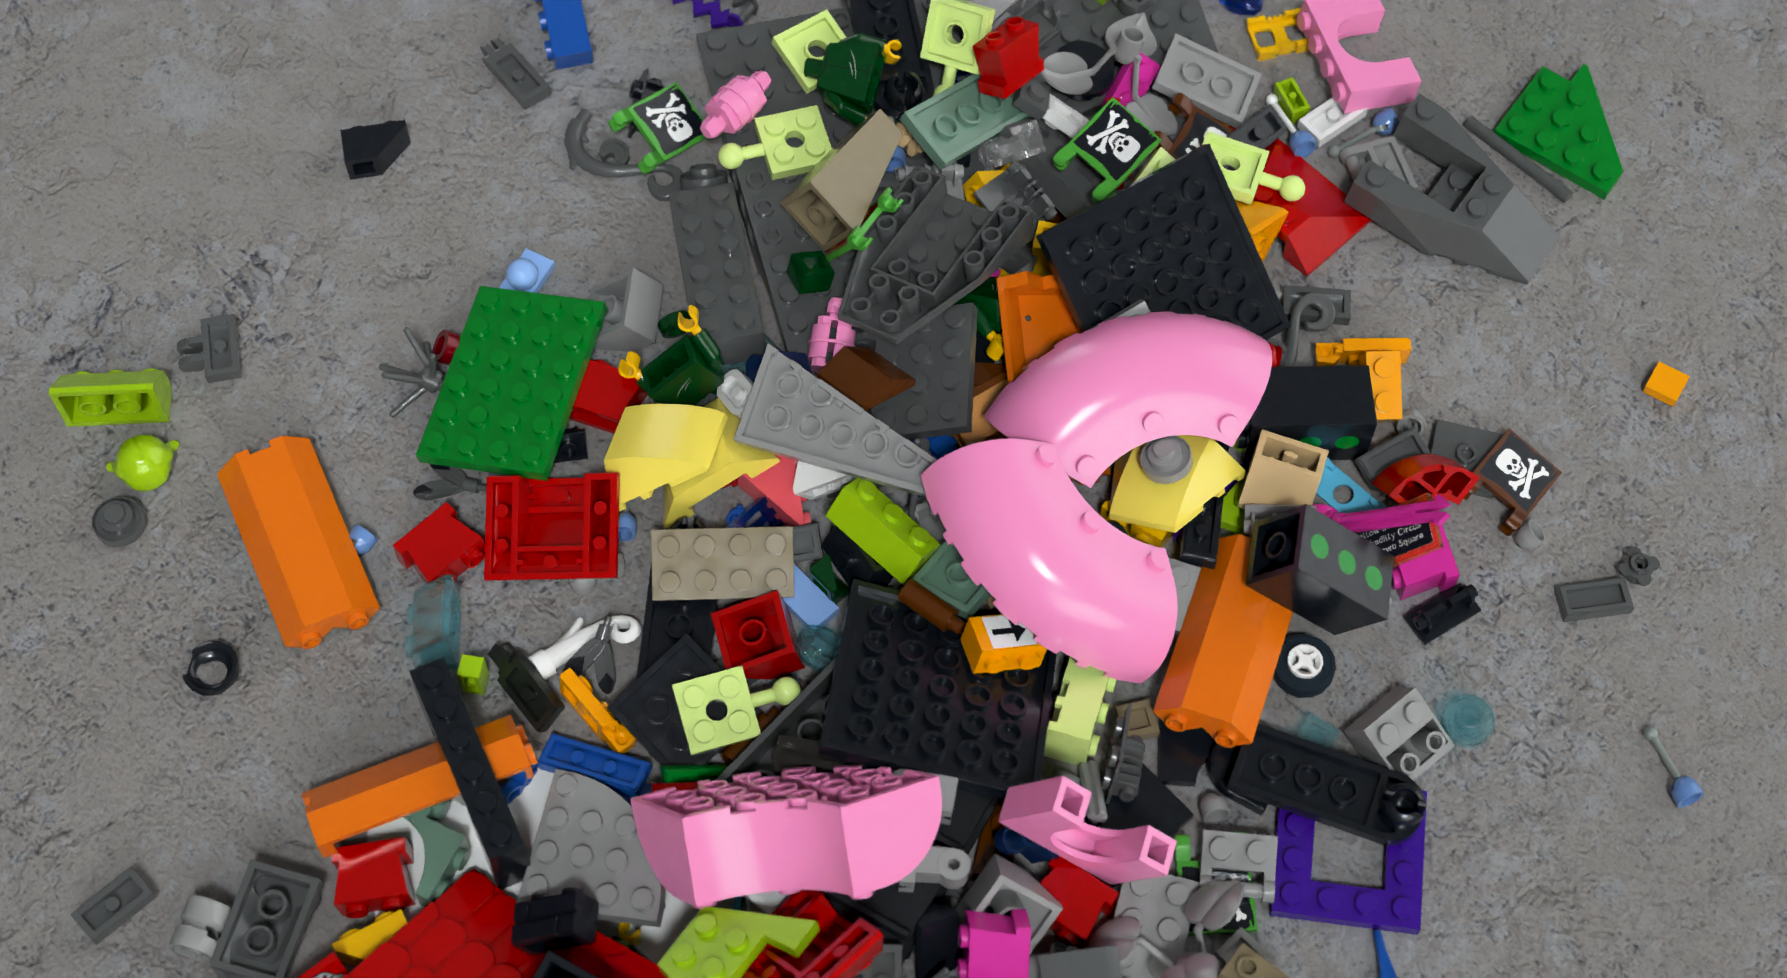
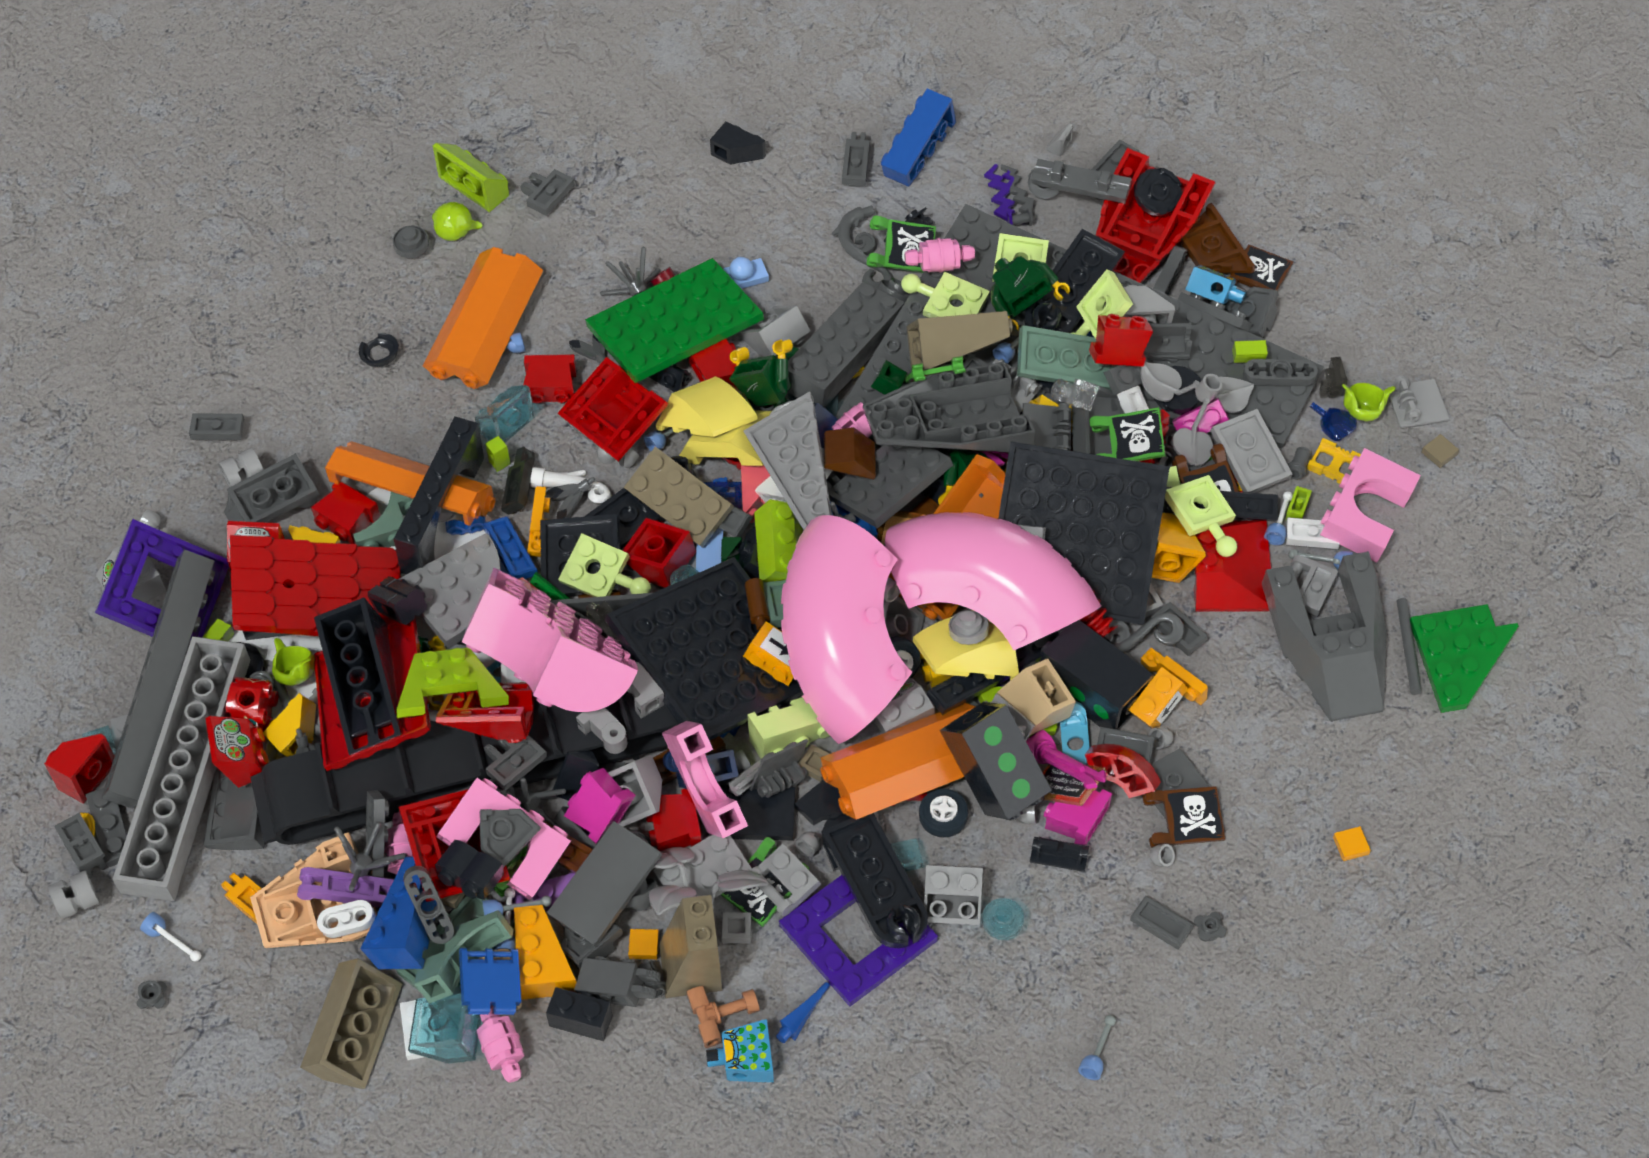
camera: 45 degrees right, 5 degrees down
(1249, 56) = (1299, 462): none -> dark grey pin

